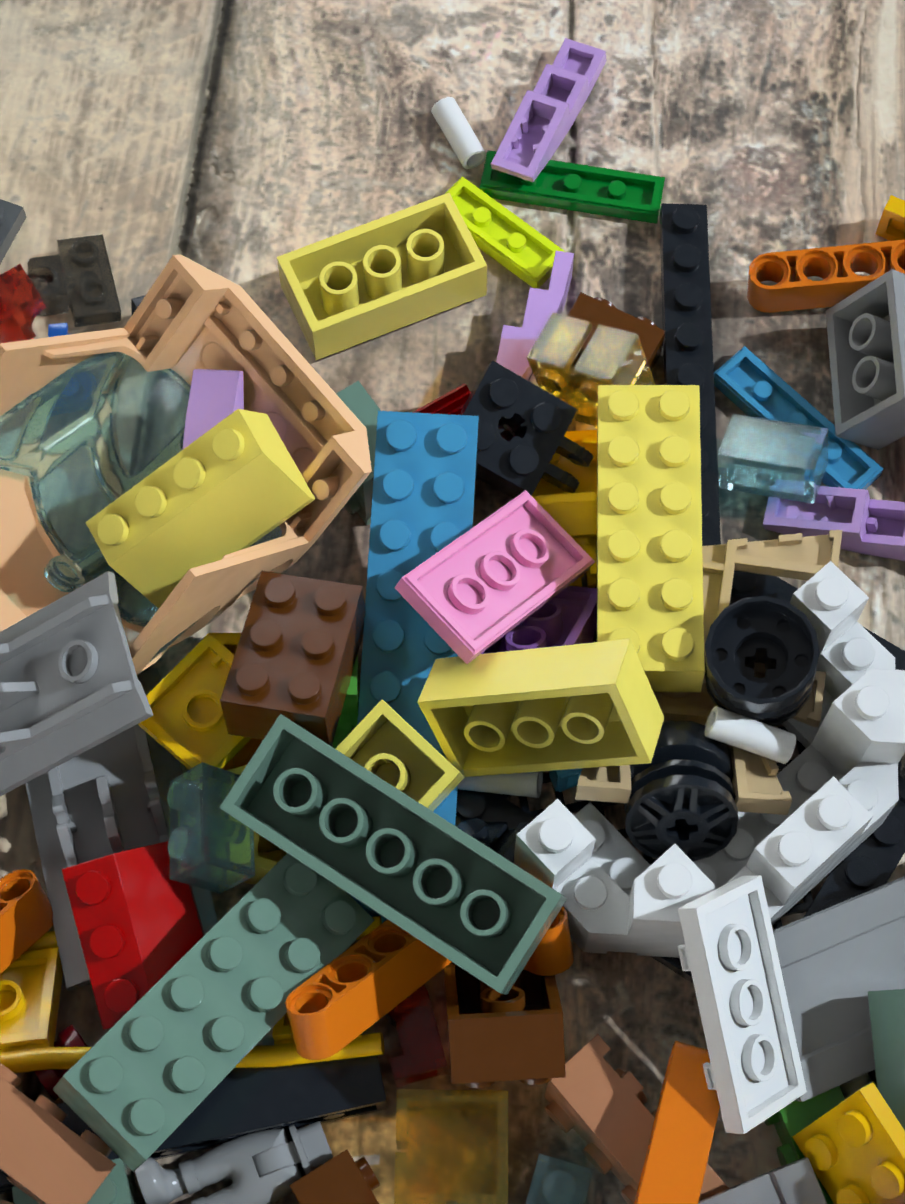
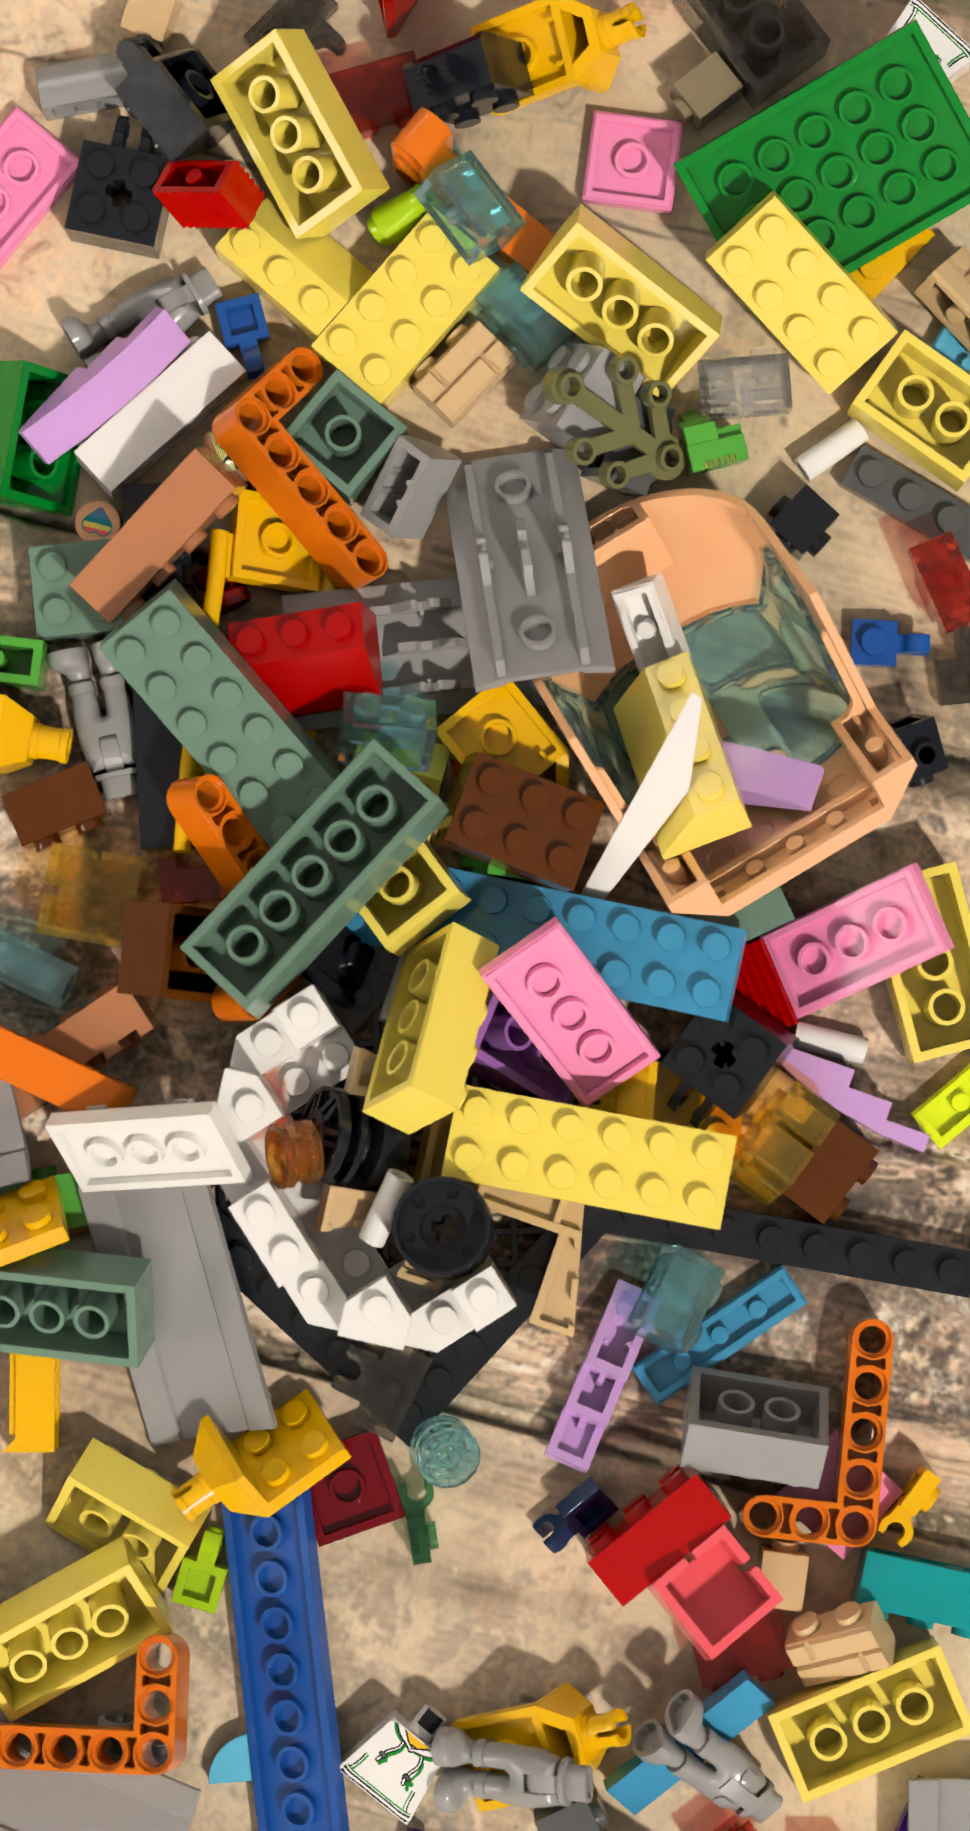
camera: 100 degrees right, 20 degrees up
(56, 574) = (649, 621): none -> white slope
(251, 505) = (653, 803): none -> white sticker
(369, 325) = (858, 940): none -> bright pink tile
(478, 352) = (831, 1042): none -> white axle
(714, 837) = (294, 1154): none -> clear orange wheel

